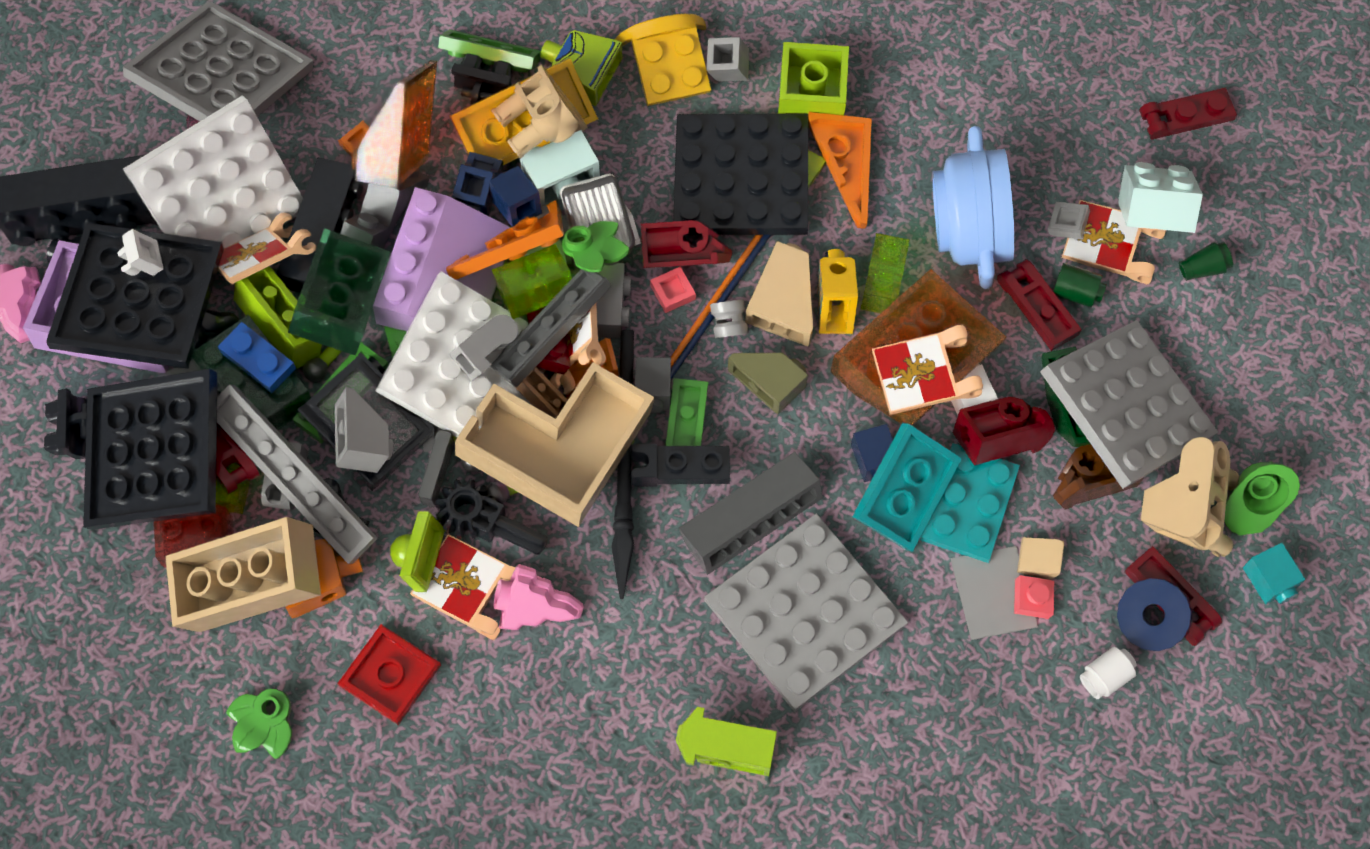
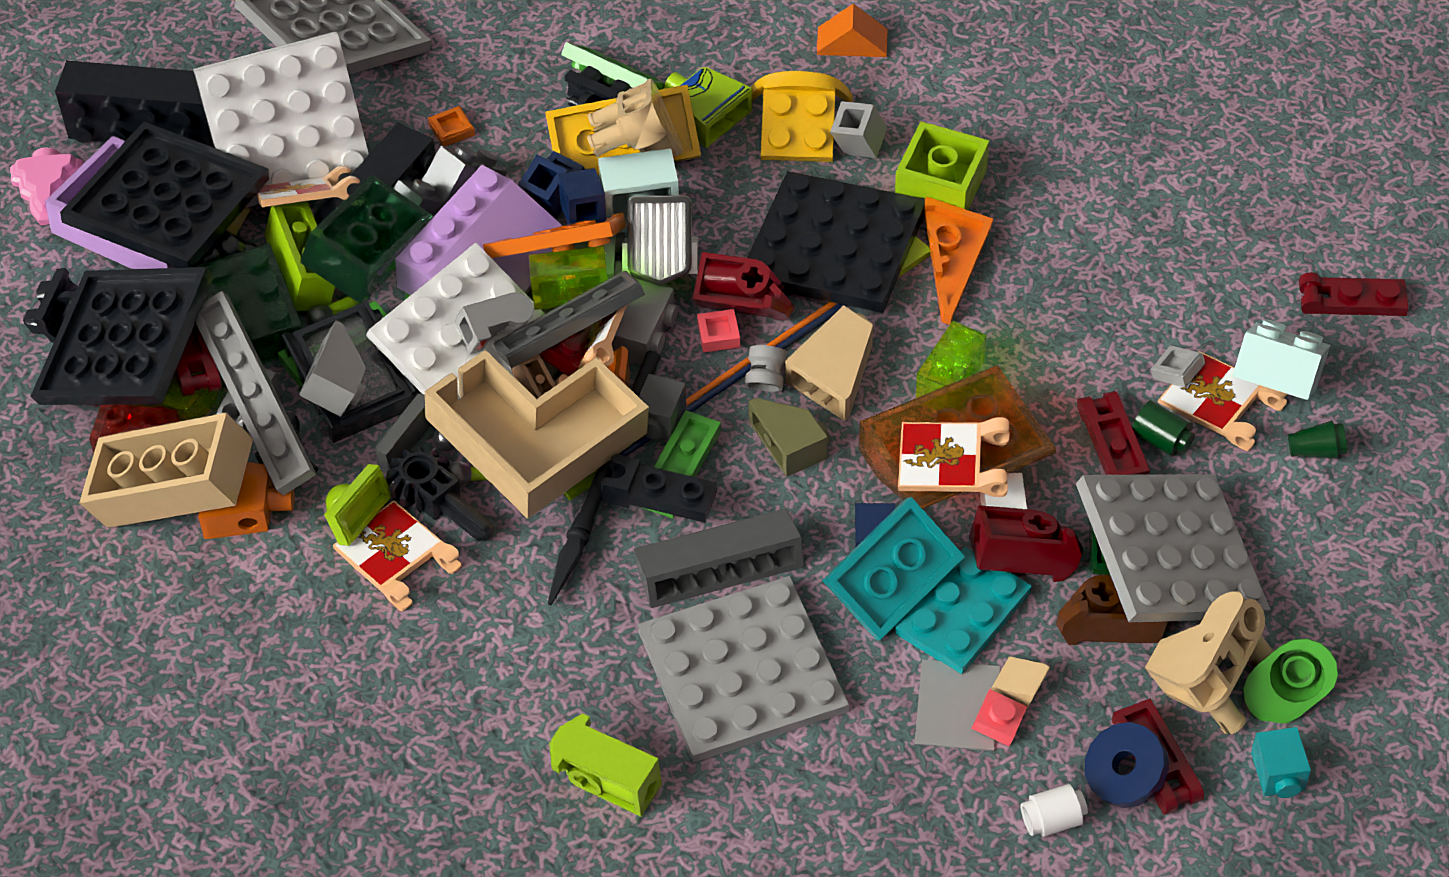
camera: 20 degrees right, 15 degrees down
(141, 254) = (182, 155): white tile -> none
(256, 357) = (261, 279): blue plate -> none
(257, 726) = (131, 625): bright green plate -> none
(389, 674) = (281, 613): red tile -> none
(400, 133) = (485, 100): clear orange slope -> none
(532, 600) = (454, 579): bright pink rock -> none
(594, 245) = (636, 256): bright green plate -> none
(837, 282) = (890, 354): yellow torso -> none
(975, 208) = (1066, 318): light blue piece -> none

